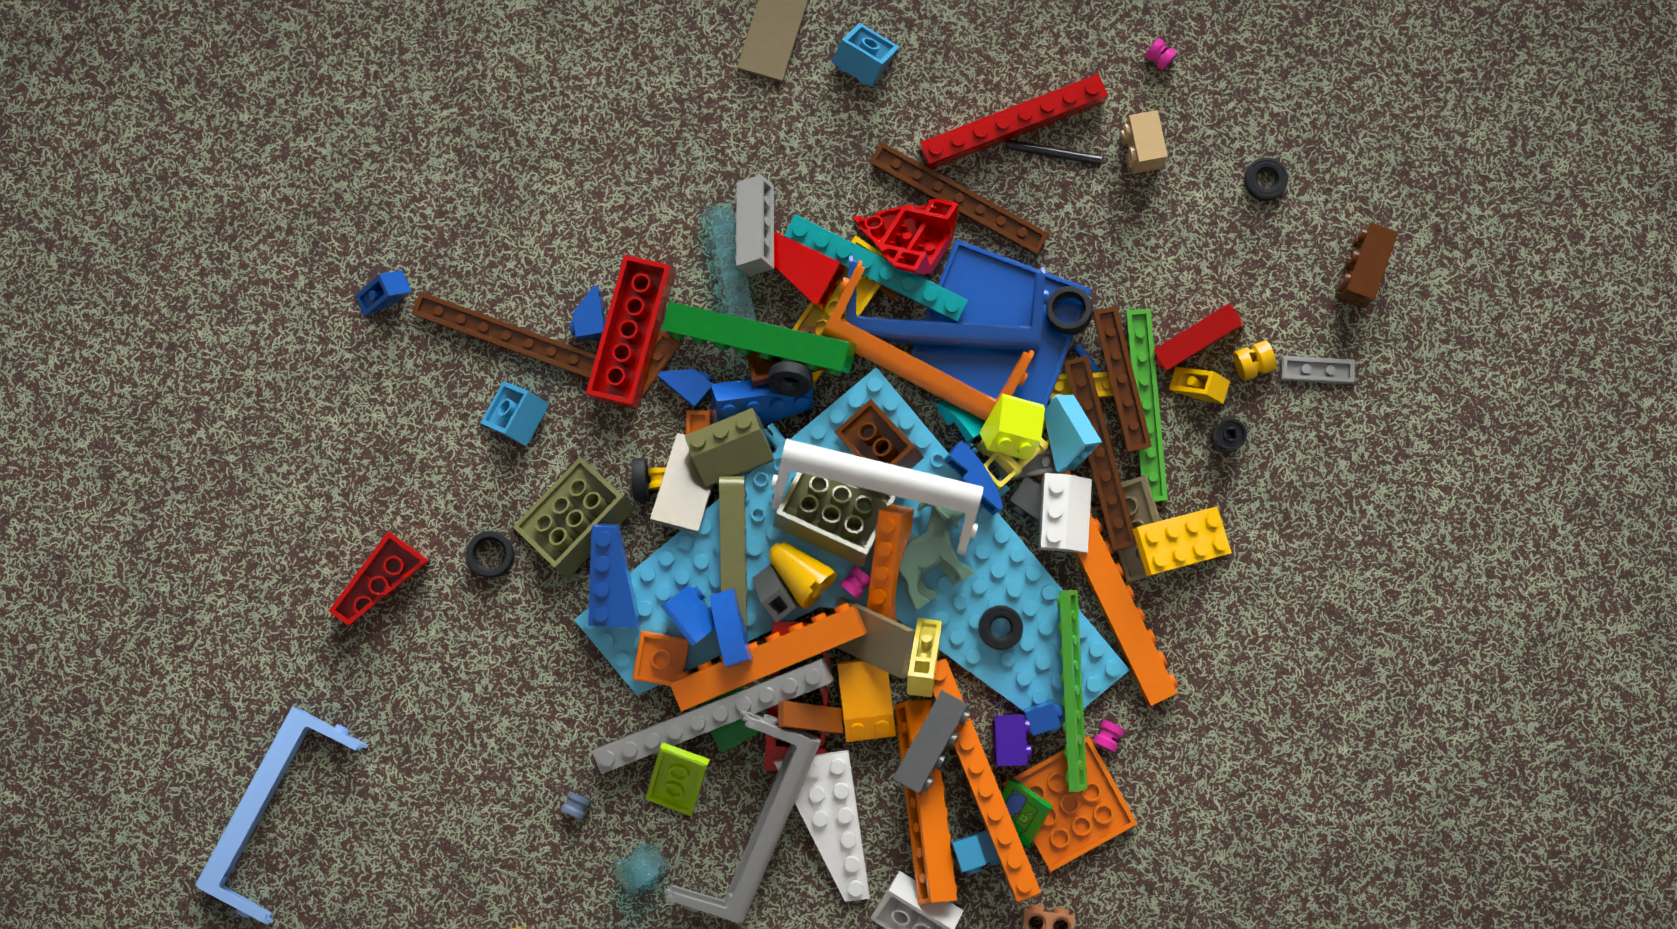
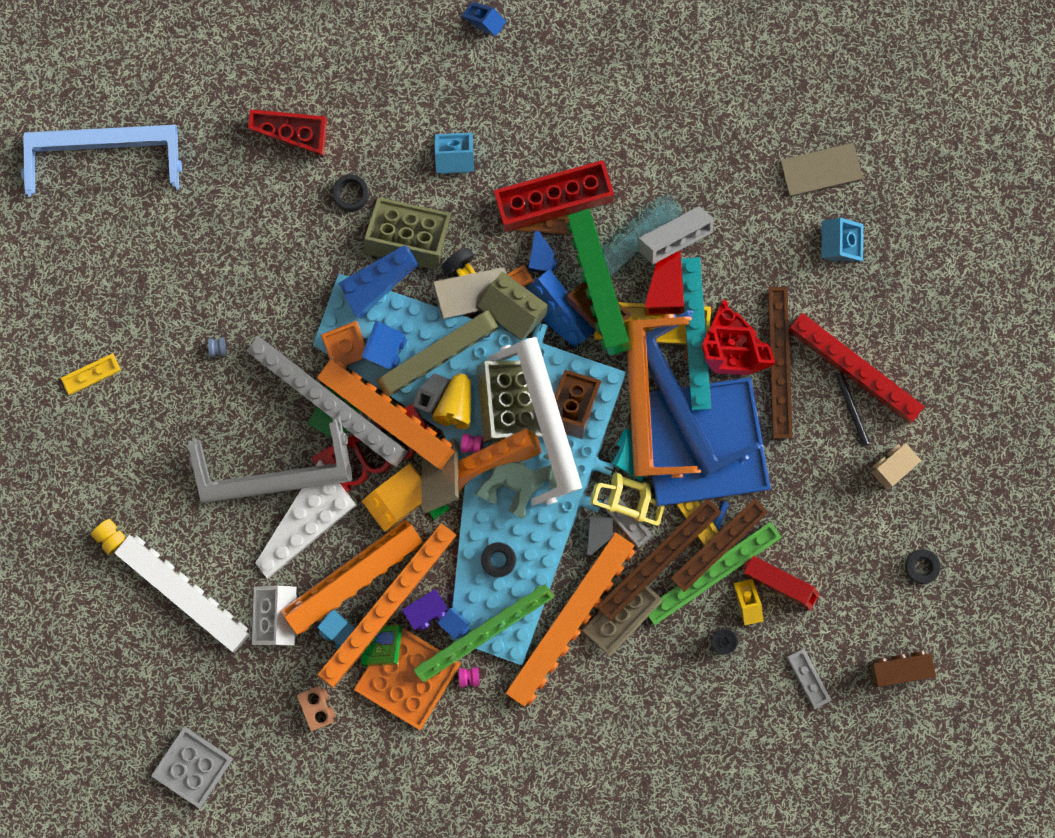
camera: 60 degrees right, 0 degrees up
(504, 335) = (503, 113): reddish brown plate -> none
(589, 317) = (549, 162): blue slope -> none
(641, 868) = (199, 414): clear light blue brick -> none
(677, 779) = (271, 402): lime tile -> none
(730, 628) = (389, 377): blue slope -> none
(792, 370) = (575, 312): black tyre -> none
(810, 717) = (361, 465): dark orange tile -> none
(924, 657) = (447, 518): light yellow slope -> none
(931, 743) = (391, 556): dark grey brick -> none
(973, 471) = (590, 481): blue slope -> none
(1014, 427) = (639, 489): neon yellow slope -> none
(1064, 513) = (602, 558): white slope -> none
(1069, 328) = (749, 467): black tyre -> none
(1069, 433) = (660, 530): medium azure slope -> none
(1156, 50) = (966, 442): dark pink wheel -> none
(1181, 541) = (631, 650): yellow plate -> none
(1263, 360) = (795, 631): yellow wheel -> none

